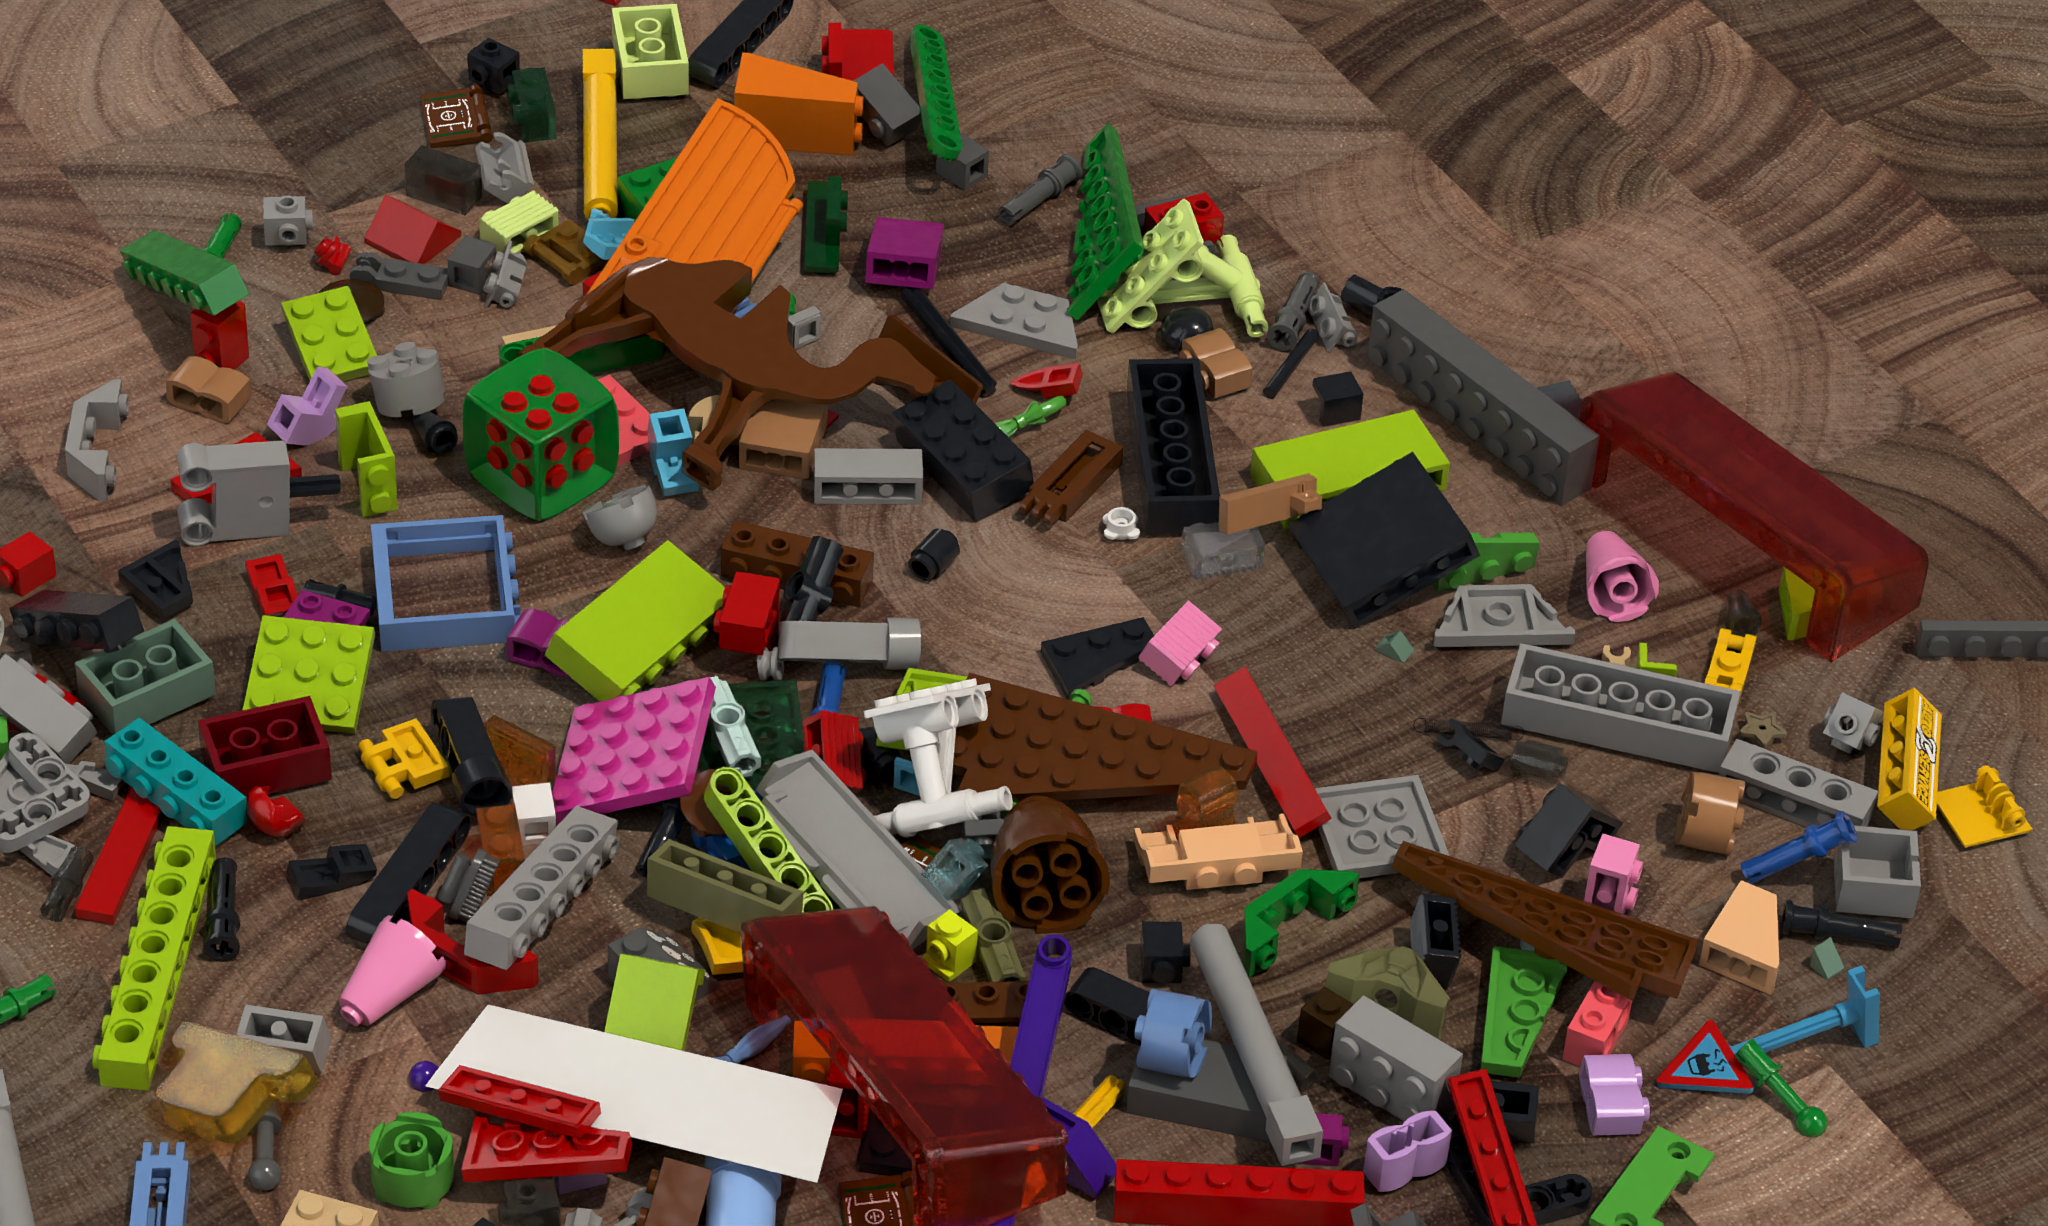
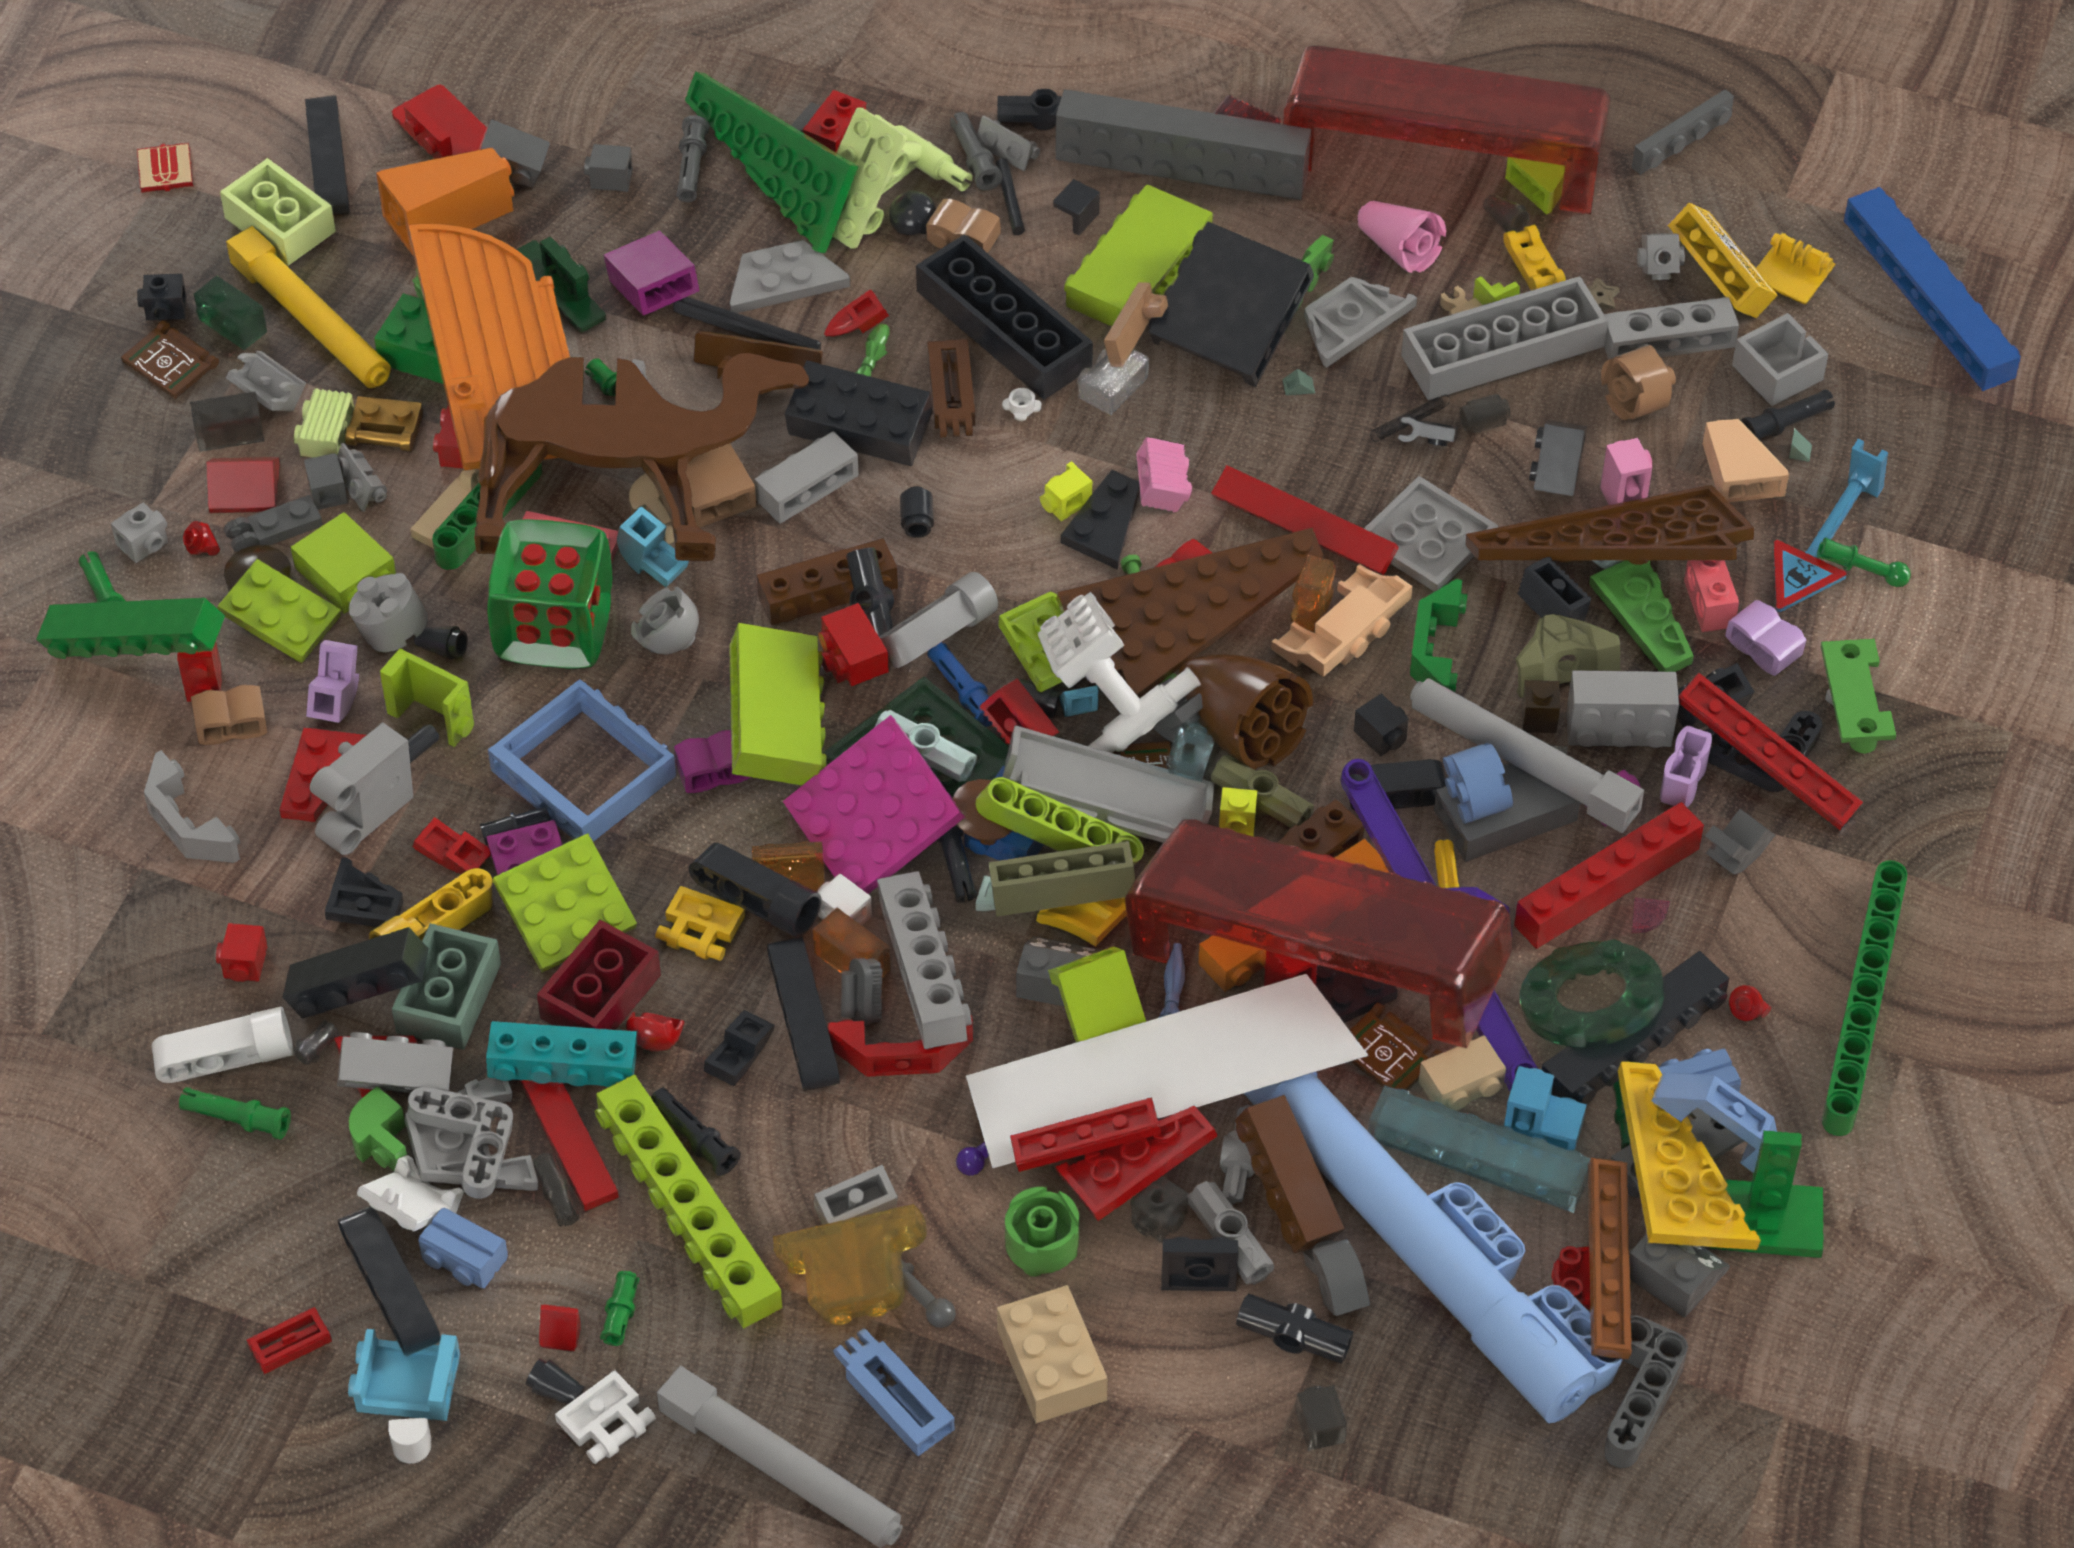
camera: 35 degrees left, 10 degrees up
(211, 624) = (449, 907): none -> yellow beam
(389, 972) = (875, 1098): bright pink cone -> none
(422, 318) = (339, 558): none -> lime brick
(605, 233) = (413, 394): medium azure slope -> none
(769, 665) = (892, 677): light grey bush -> none
(935, 93) = (541, 120): green plate -> none
(1079, 610) = (1066, 492): none -> neon yellow brick
(1814, 842) = (1733, 362): blue pin -> none

